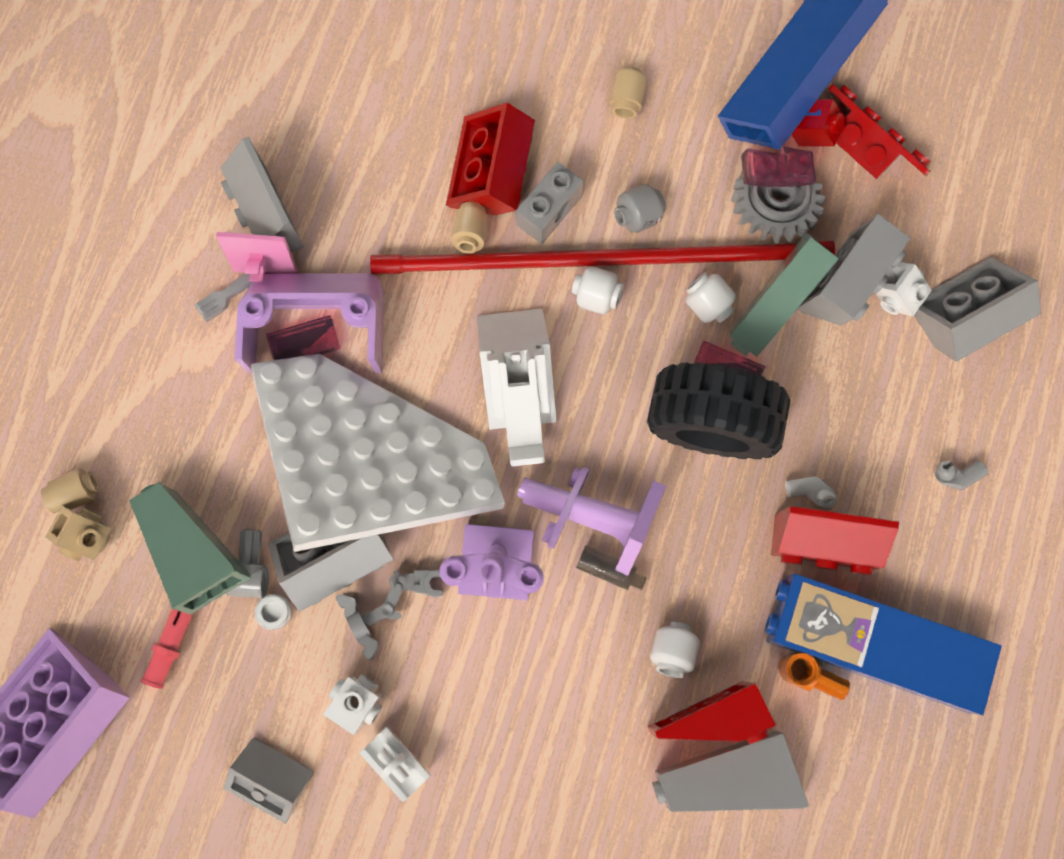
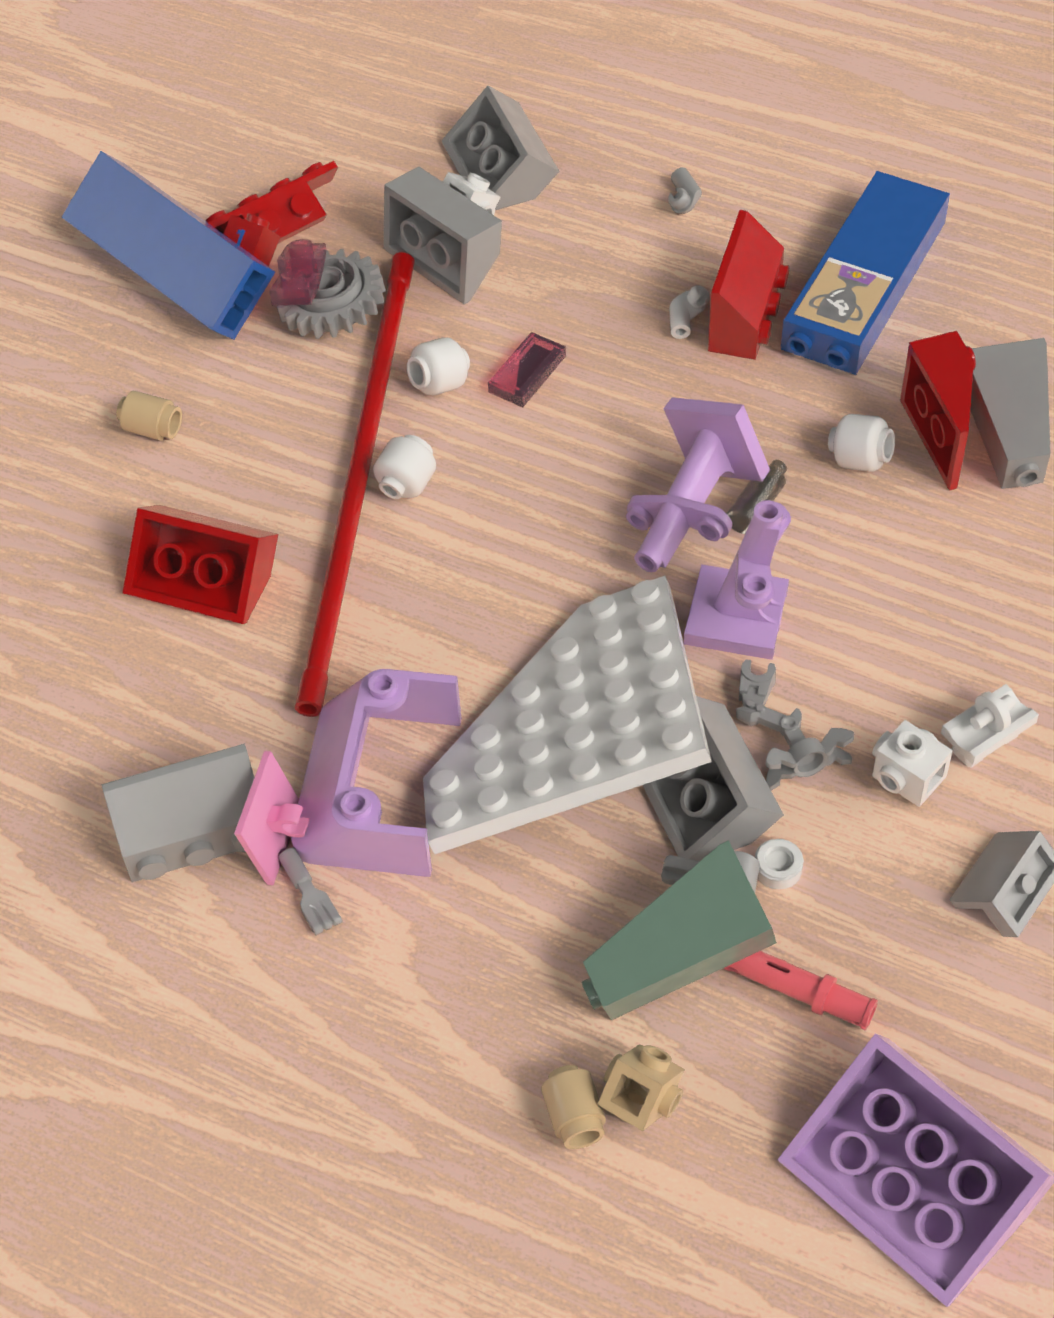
camera: 80 degrees left, 25 degrees down
(304, 339) = (399, 790): clear pink tile -> none
(469, 227) = (287, 587): tan brick -> none
(518, 380) = (509, 540): white piece -> none
(549, 203) = (277, 502): light grey brick -> none
(639, 208) = (303, 416): light grey head -> none
(719, 410) = (590, 342): black tyre -> none
(782, 295) = (451, 289): sand green slope -> none
(814, 676) = (894, 332): orange axle -> none

